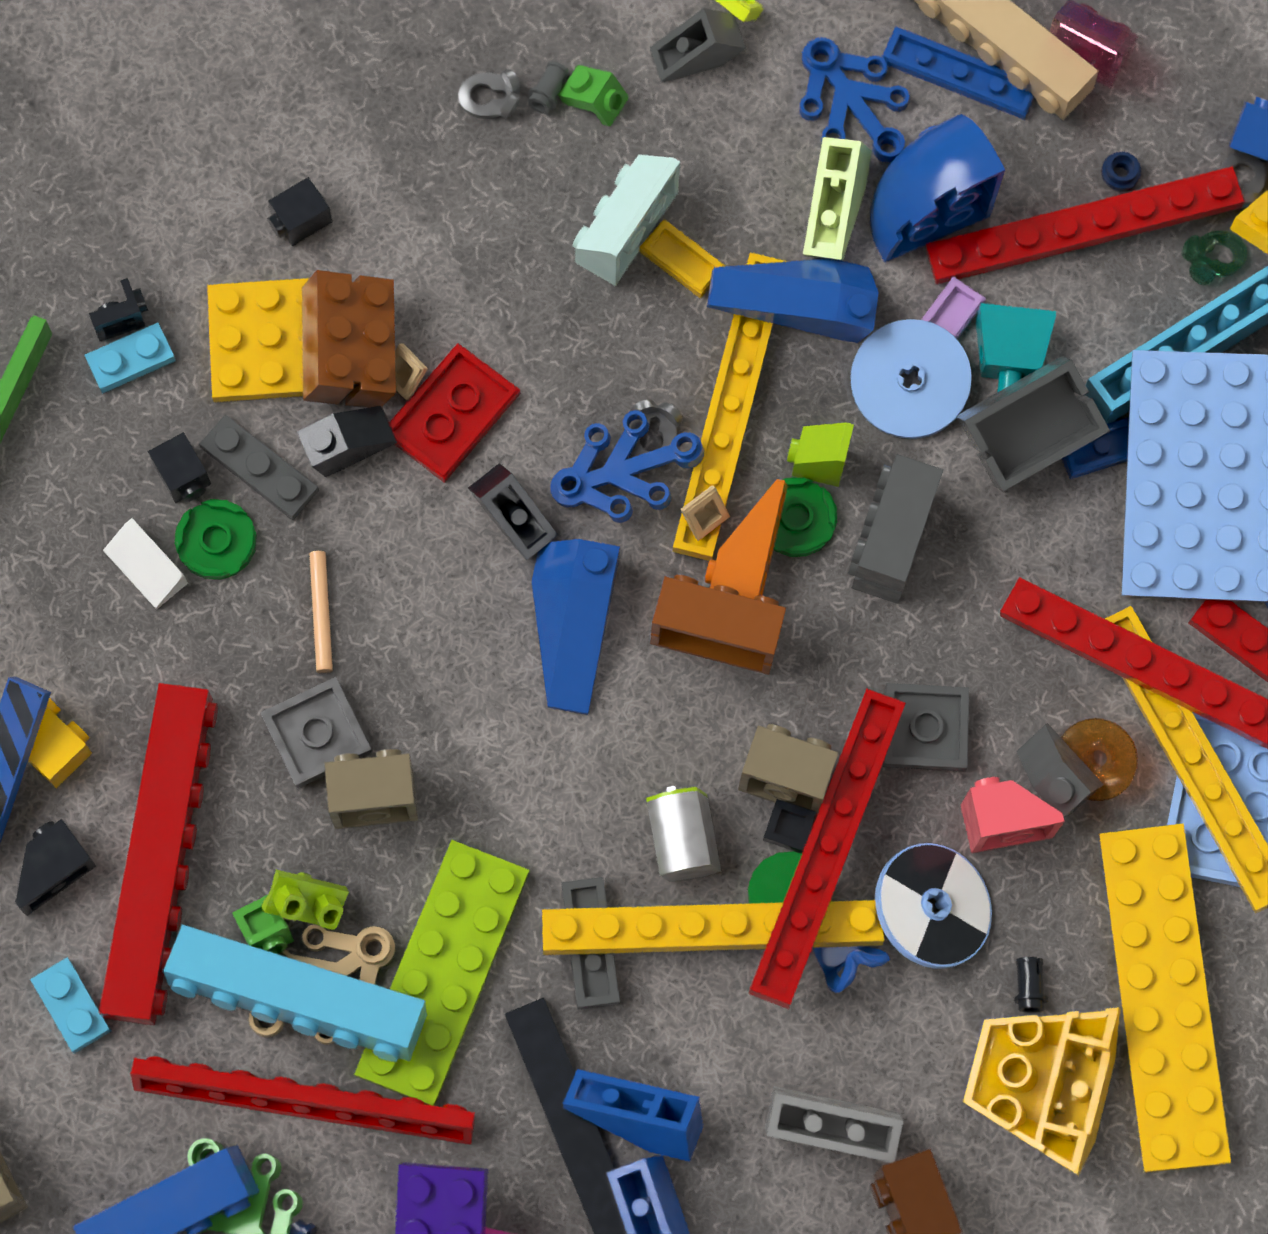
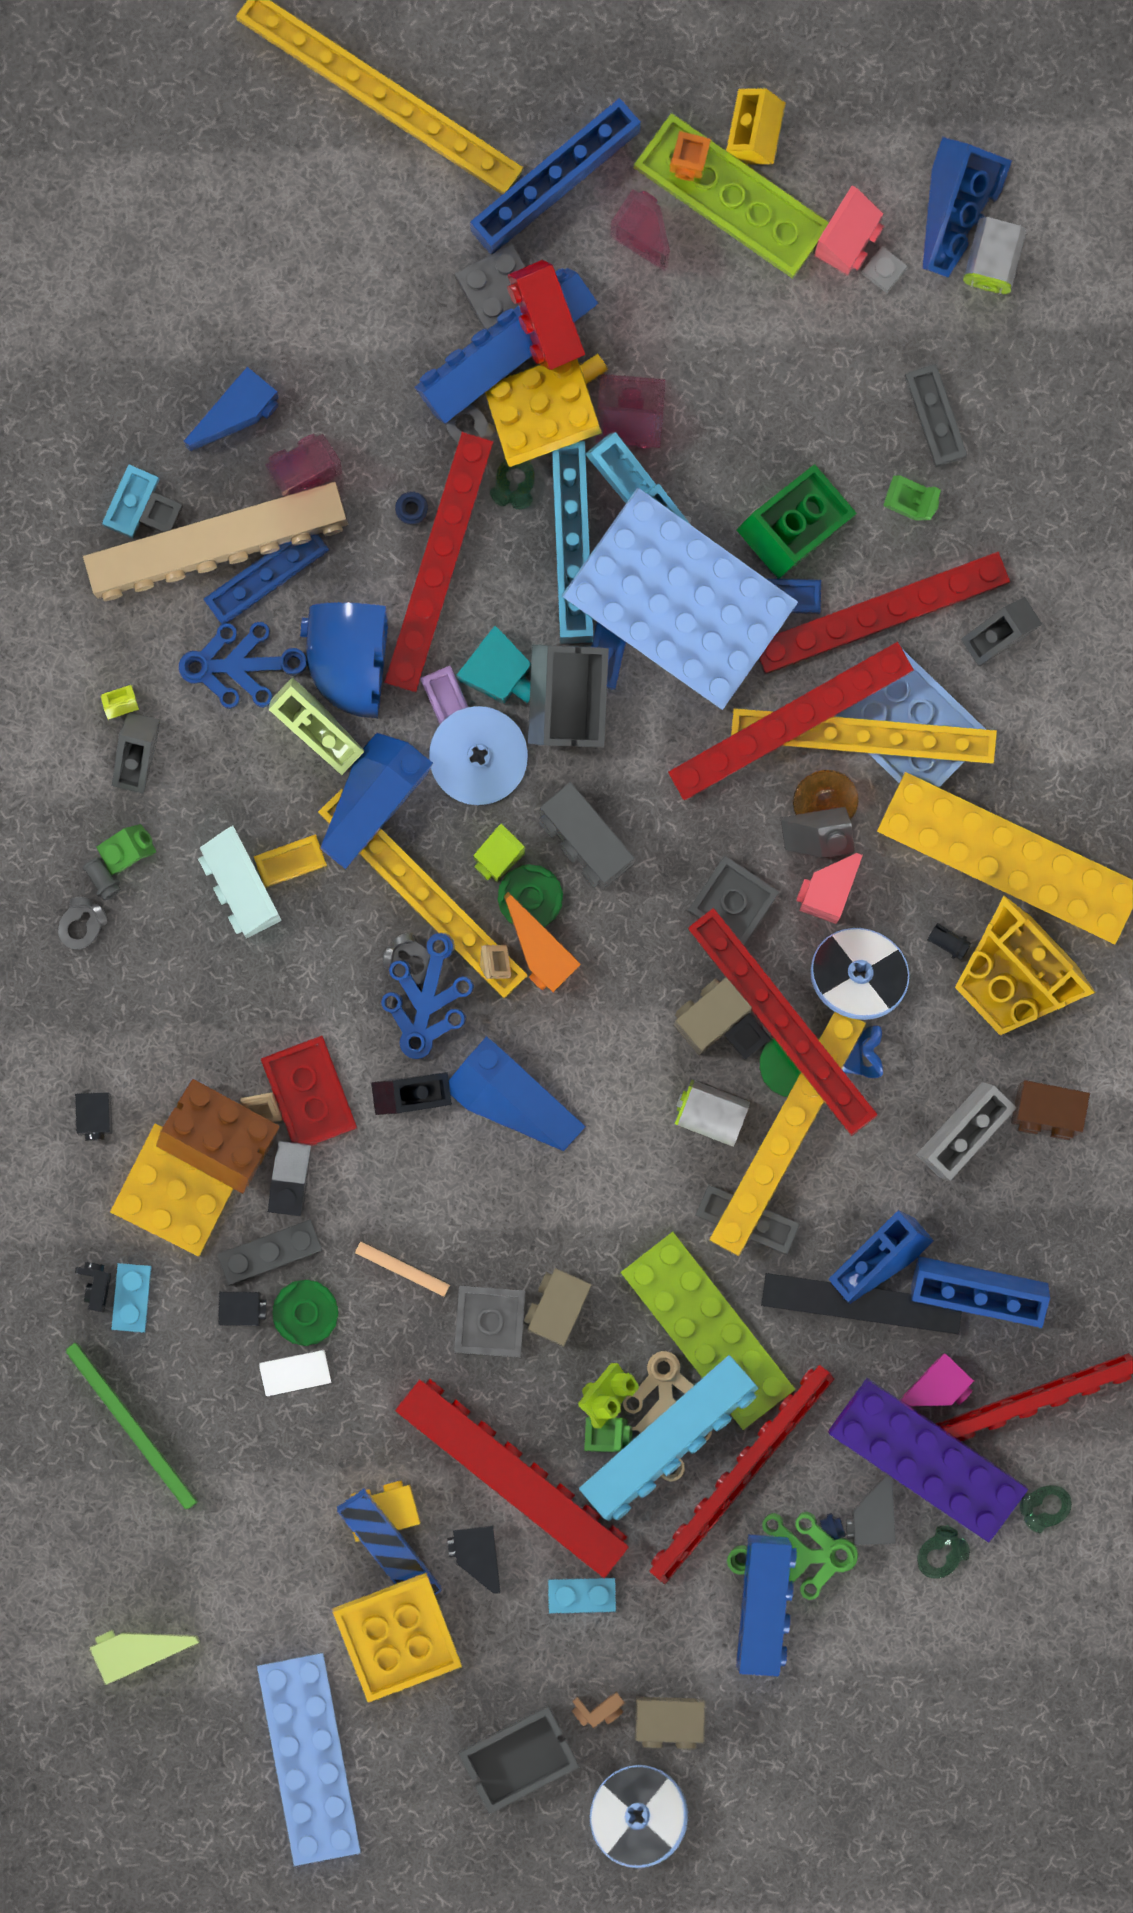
camera: 60 degrees left, 10 degrees up
(717, 624) = (581, 1000): dark orange piece -> none

